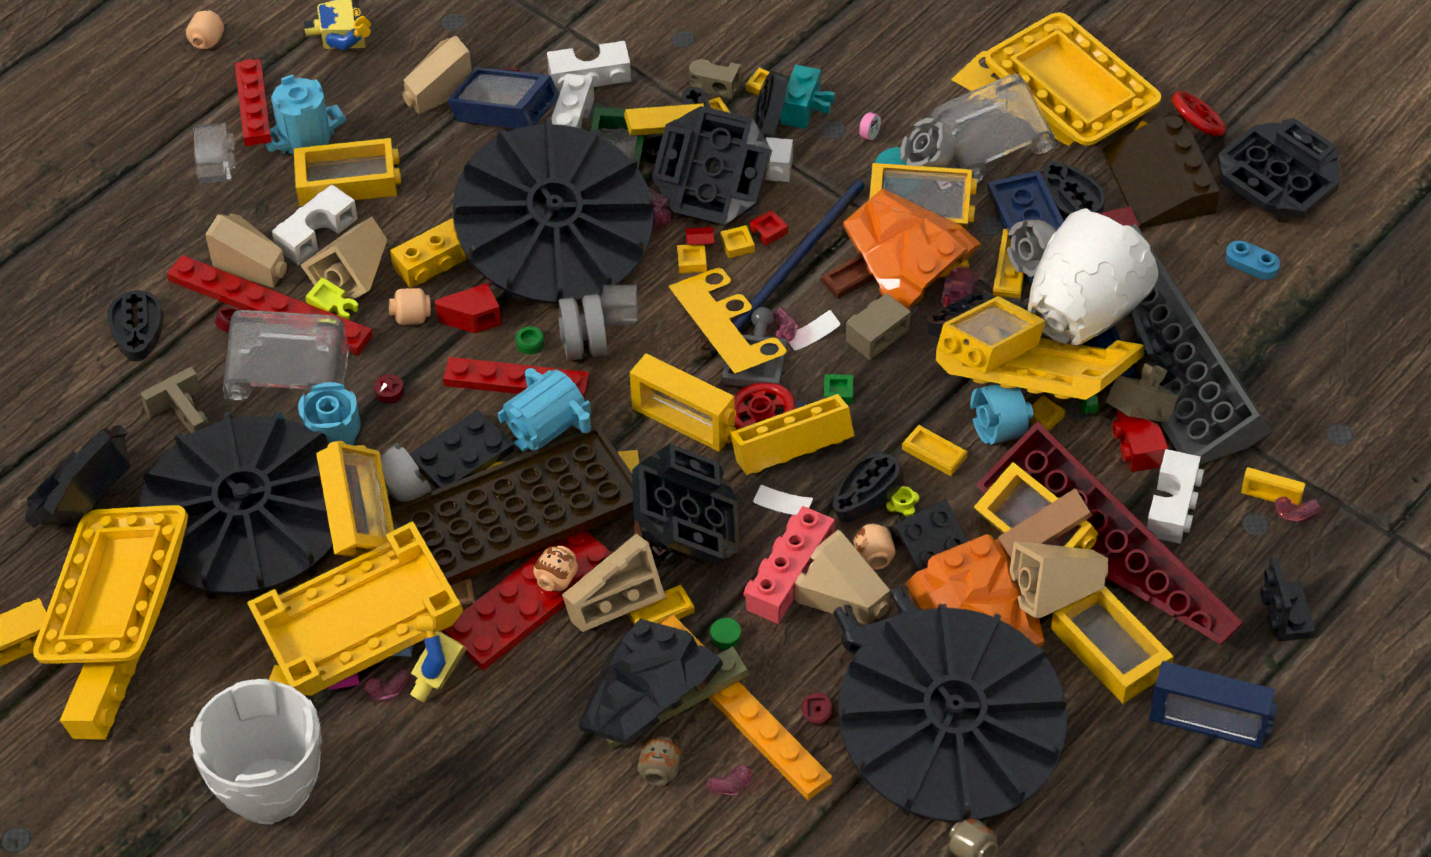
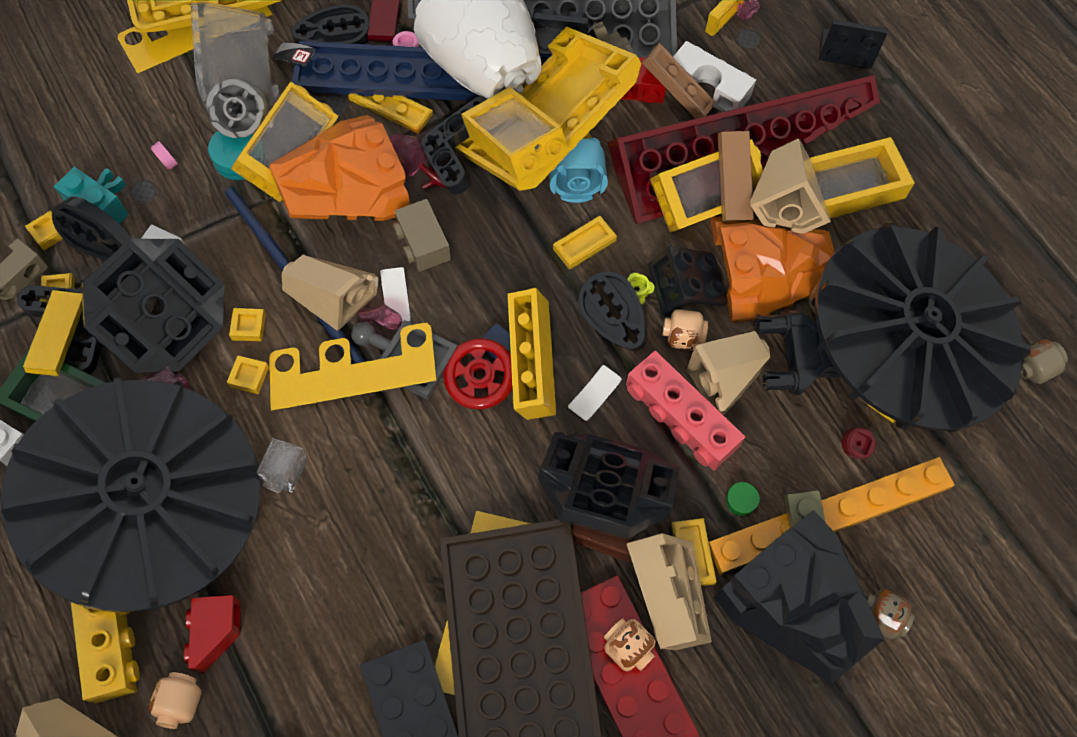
camera: 75 degrees left, 15 degrees up
(500, 376) = (328, 610): red plate -> none
(529, 340) = (281, 576): green tile -> none
(545, 409) = (403, 588): medium azure container -> none
(582, 327) = (307, 511): light grey wheel -> none
(682, 402) = (453, 441): yellow window -> none
(700, 236) = (225, 356): red tile -> none
(732, 783) = (925, 550): clear pink arm -> none
(769, 227) = (247, 288): red plate -> none
(790, 278) = (329, 288): none -> tan slope
(840, 385) = (479, 297): green tile -> none
(847, 277) = (342, 240): copper tile -> none
(1024, 173) = (294, 53): none -> sticker
(1028, 244) = (403, 71): light grey cylinder -> none
(1145, 464) = (678, 82): none -> medium nougat tile
(1213, 705) = (949, 128): dark blue window -> none

